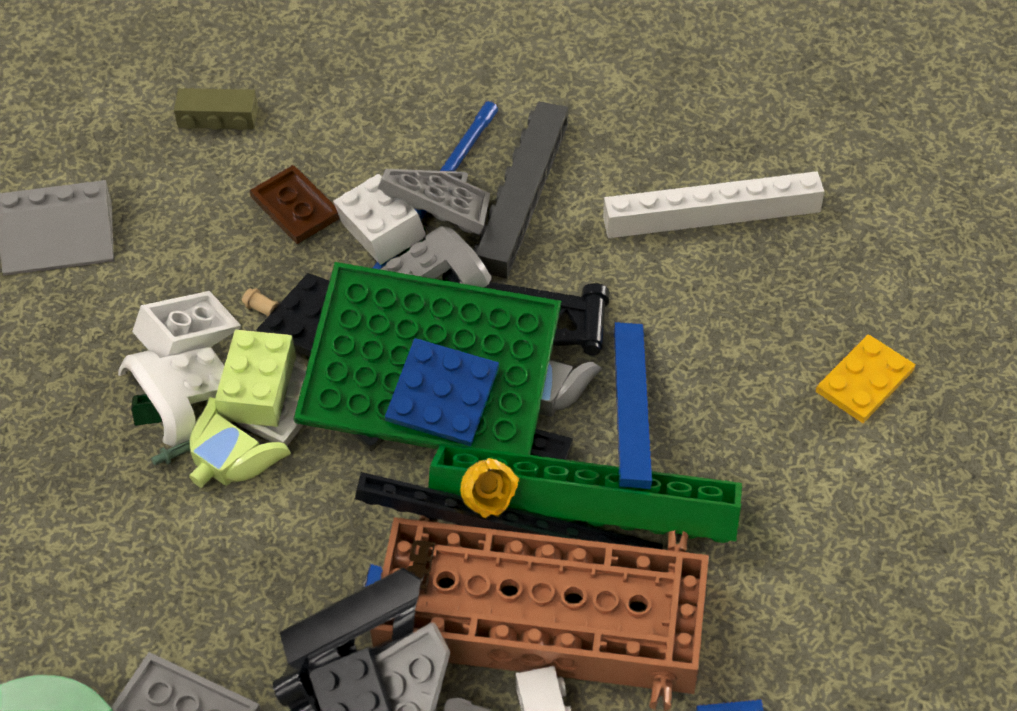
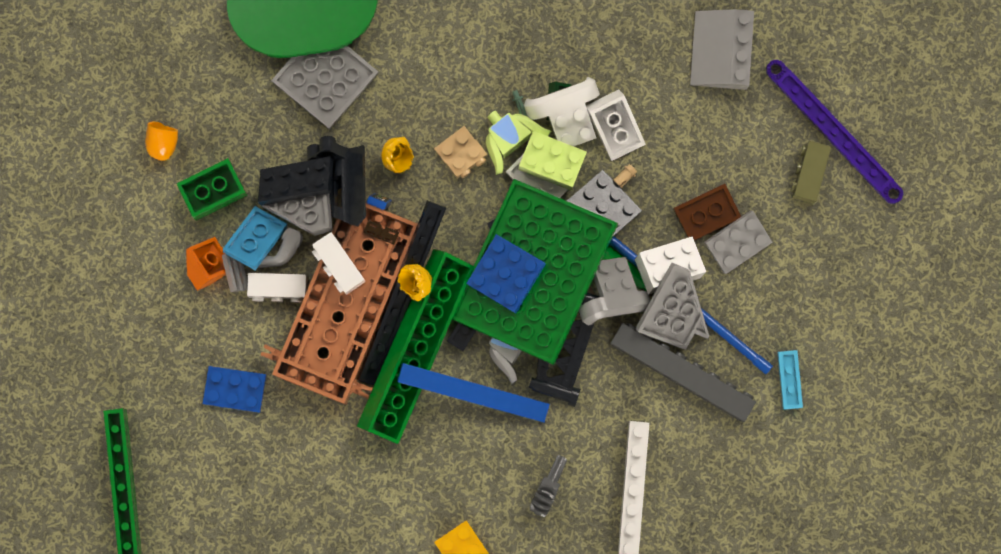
camera: 100 degrees right, 30 degrees up
(152, 102) = (834, 131): none -> dark purple plate
(265, 509) = (461, 153): none -> tan plate
(285, 591) = (397, 155): none -> yellow hair
(327, 163) = (738, 242): none -> light grey plate
(487, 605) = (337, 264): none -> white brick
(497, 84) = (790, 379): none -> medium azure plate
(739, 296) = (548, 488): none -> dark grey gear

